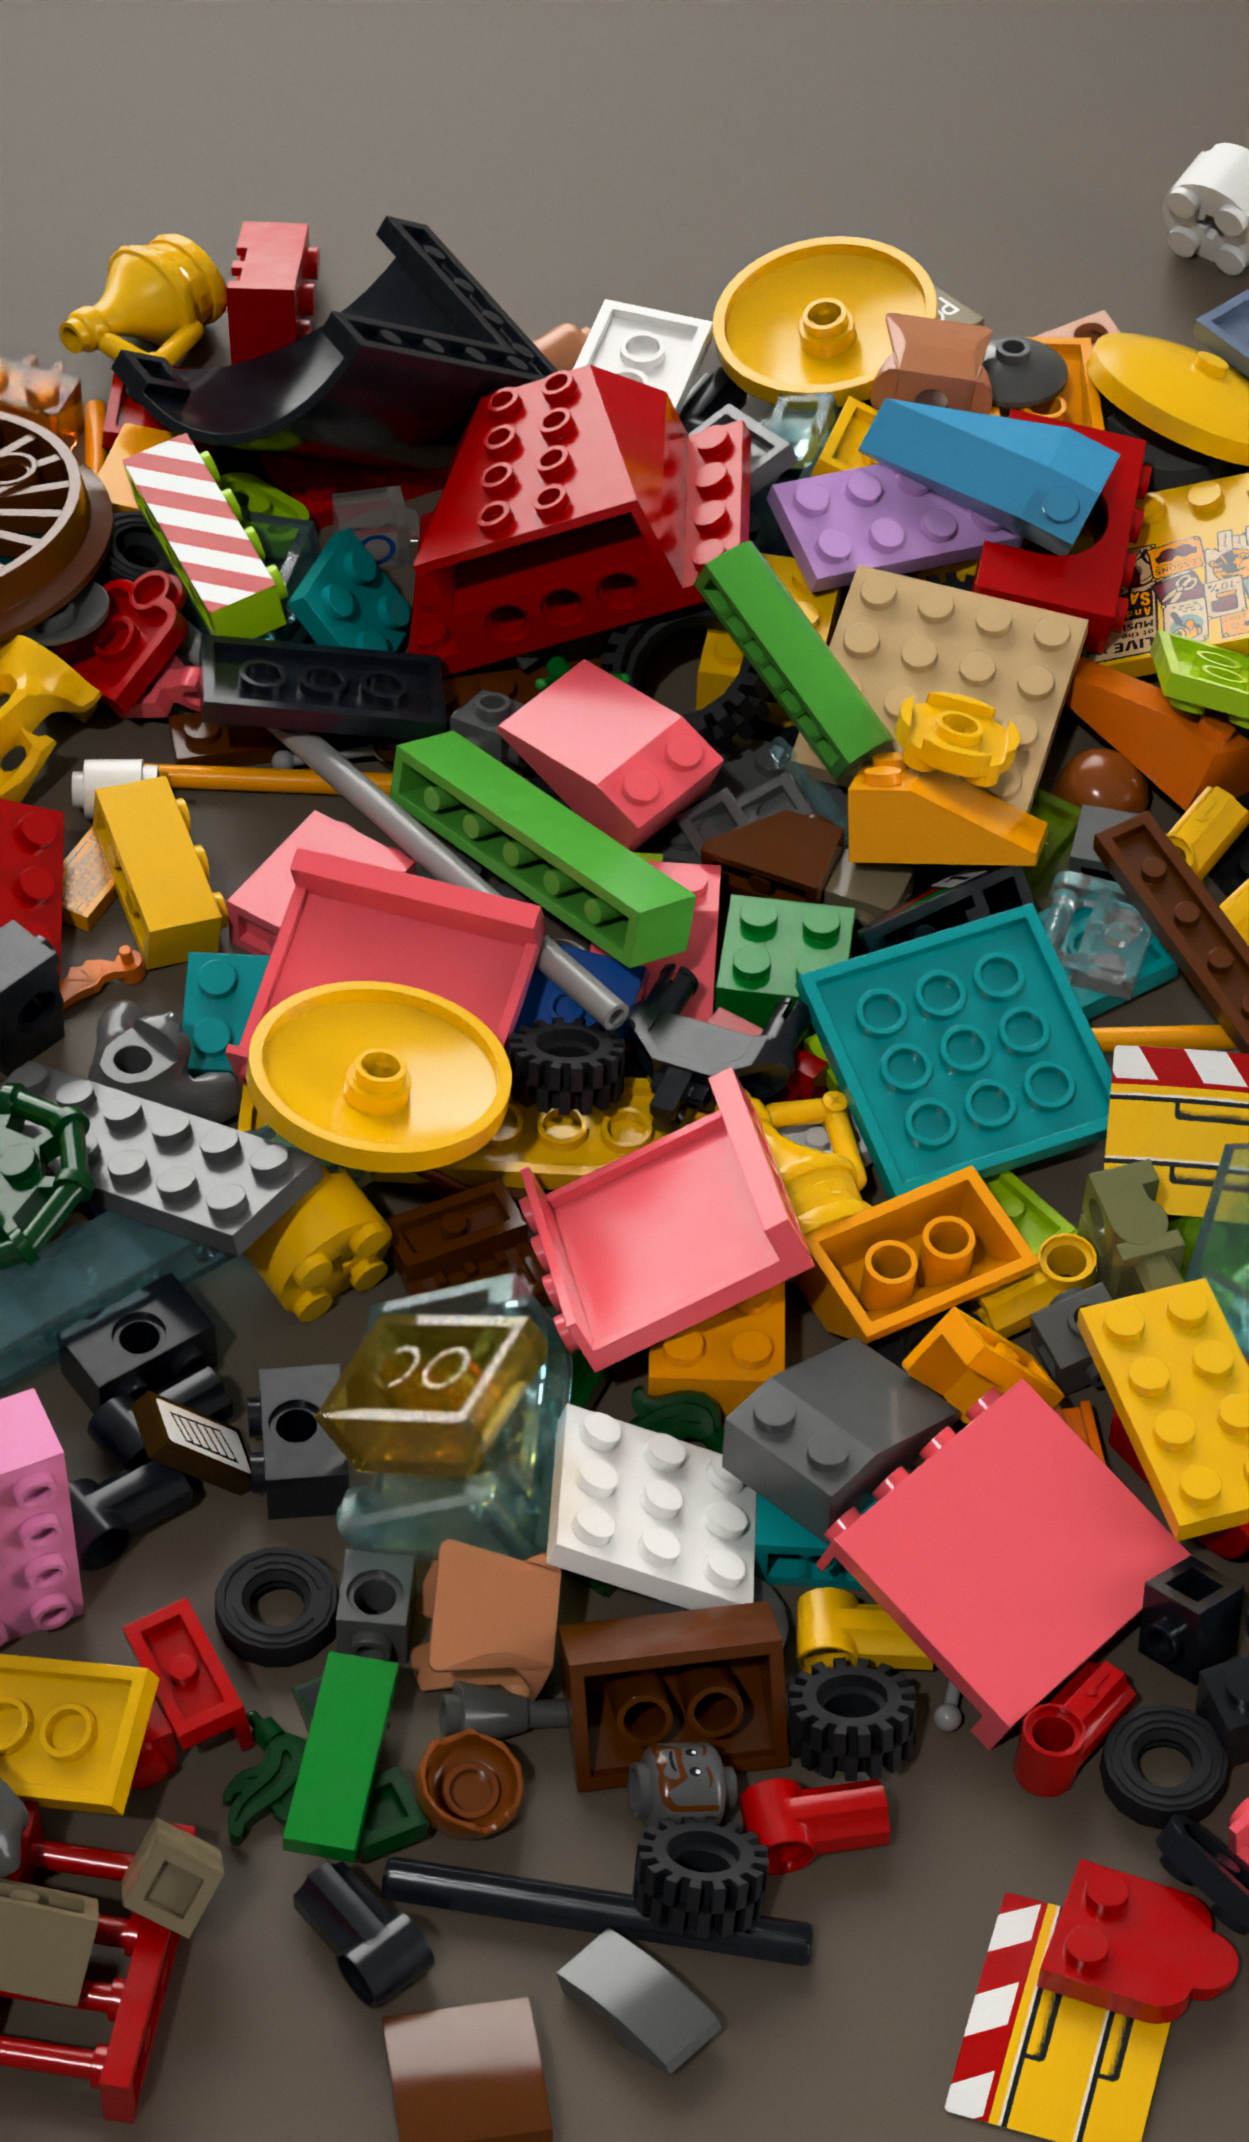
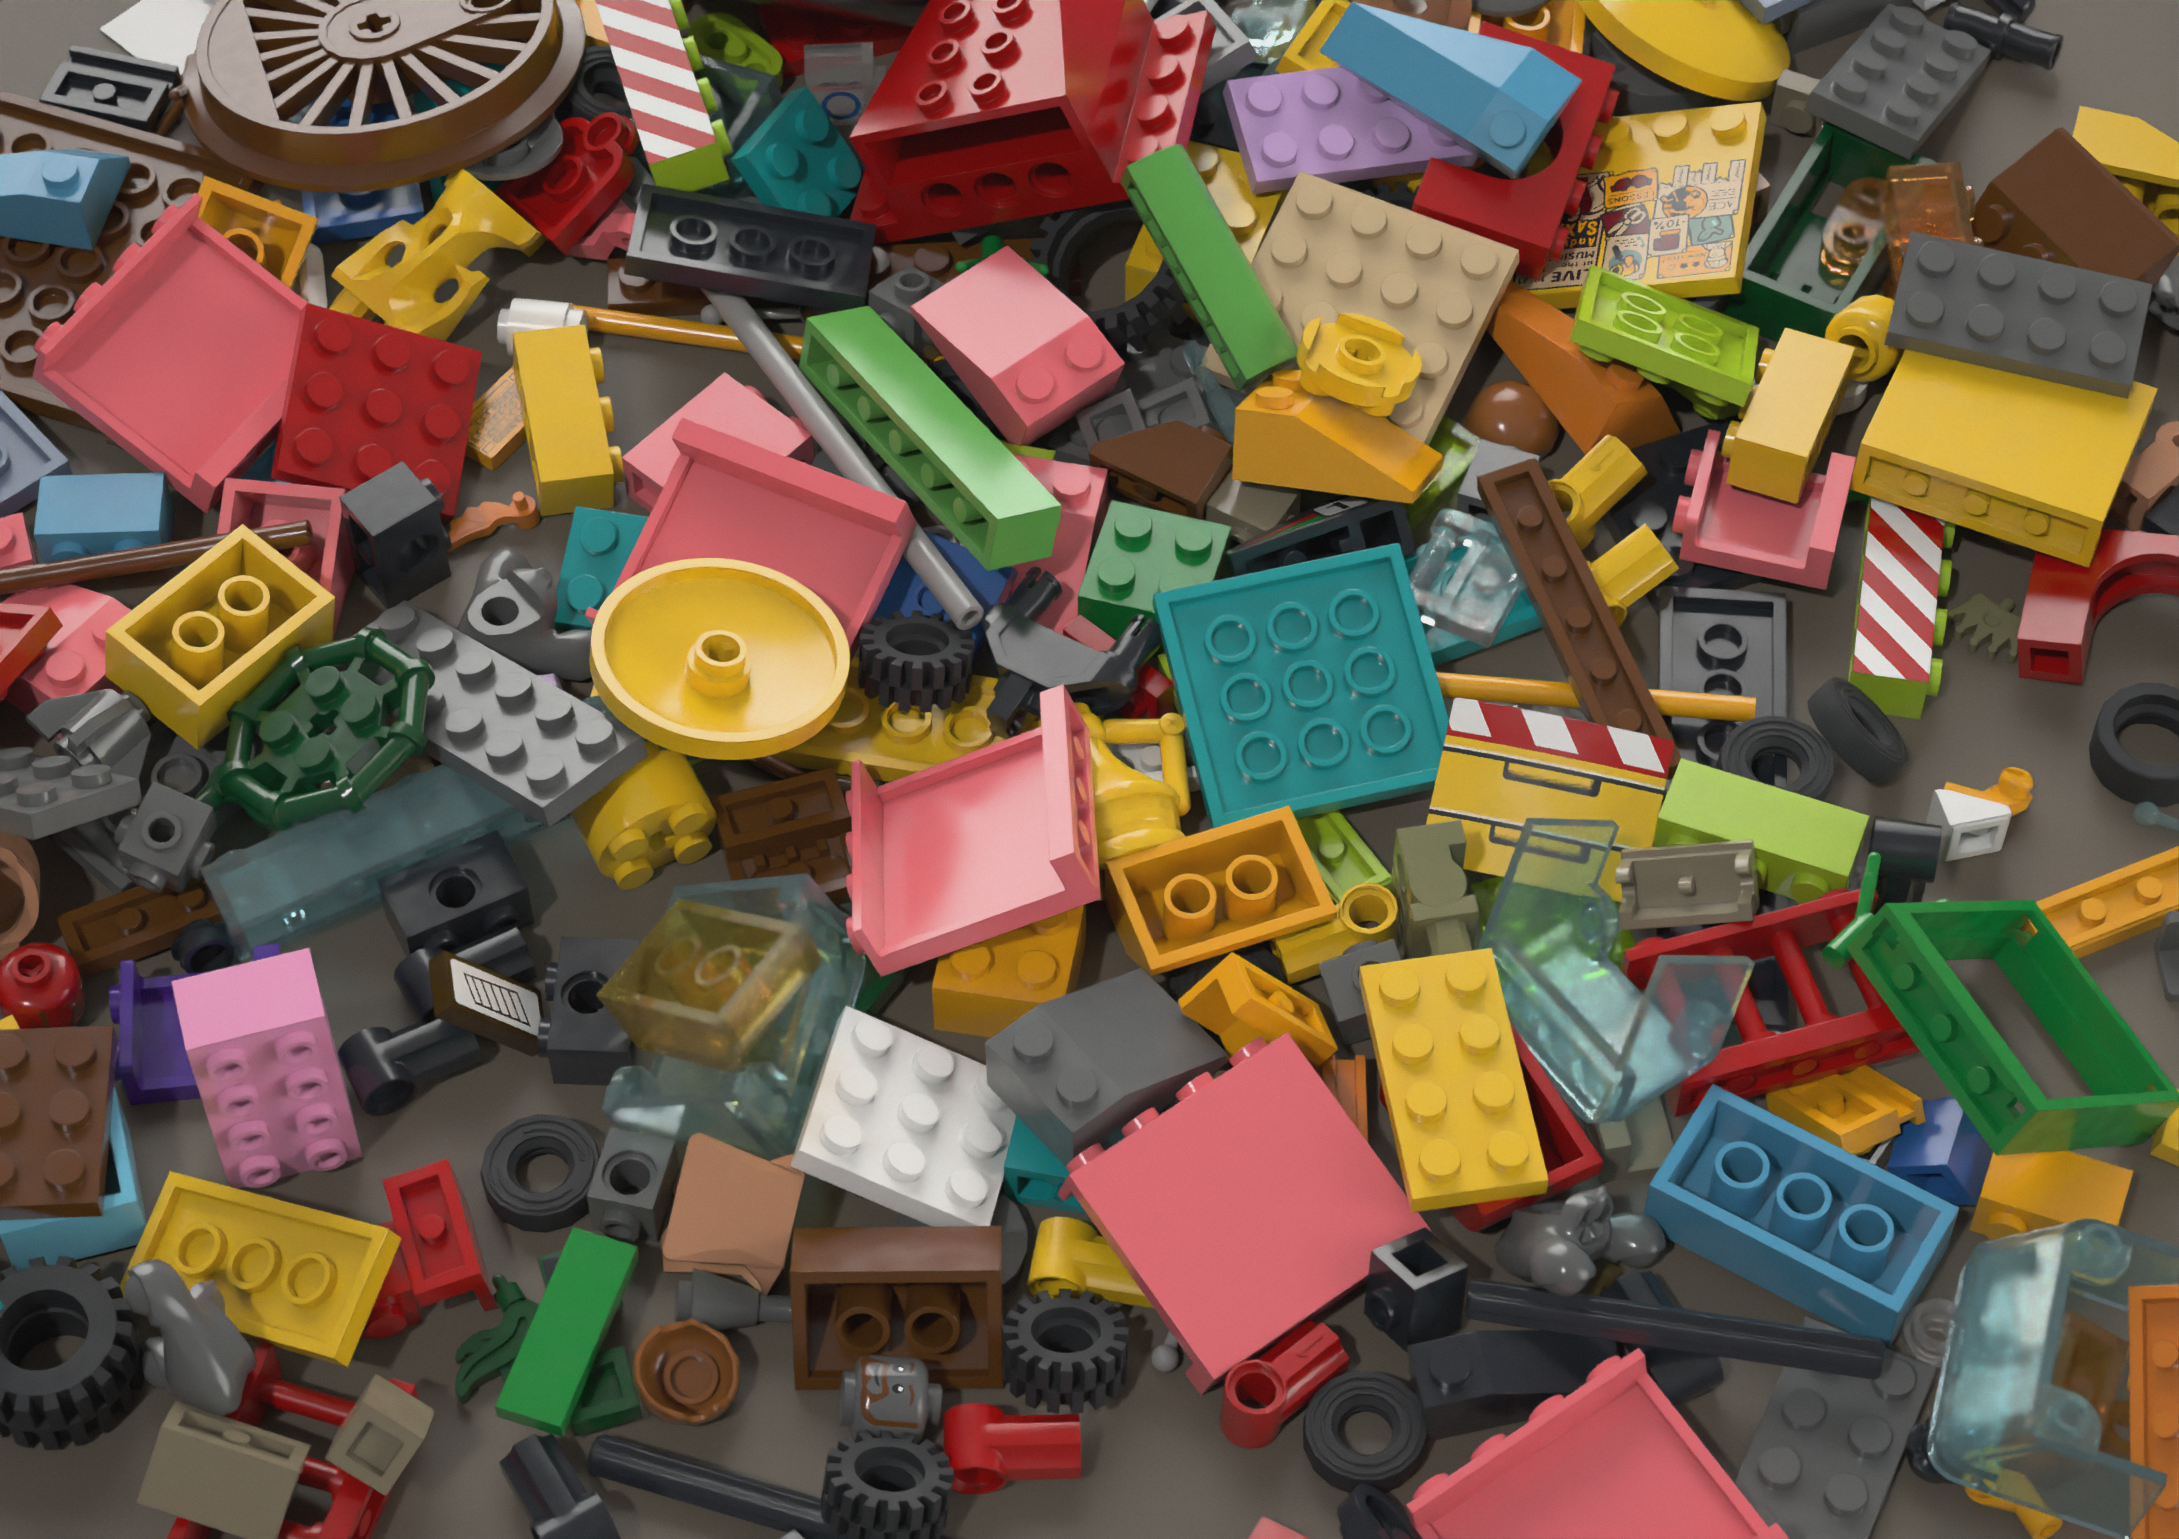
camera: 10 degrees right, 5 degrees up
(680, 1416) = (955, 1024): dark green piece -> none

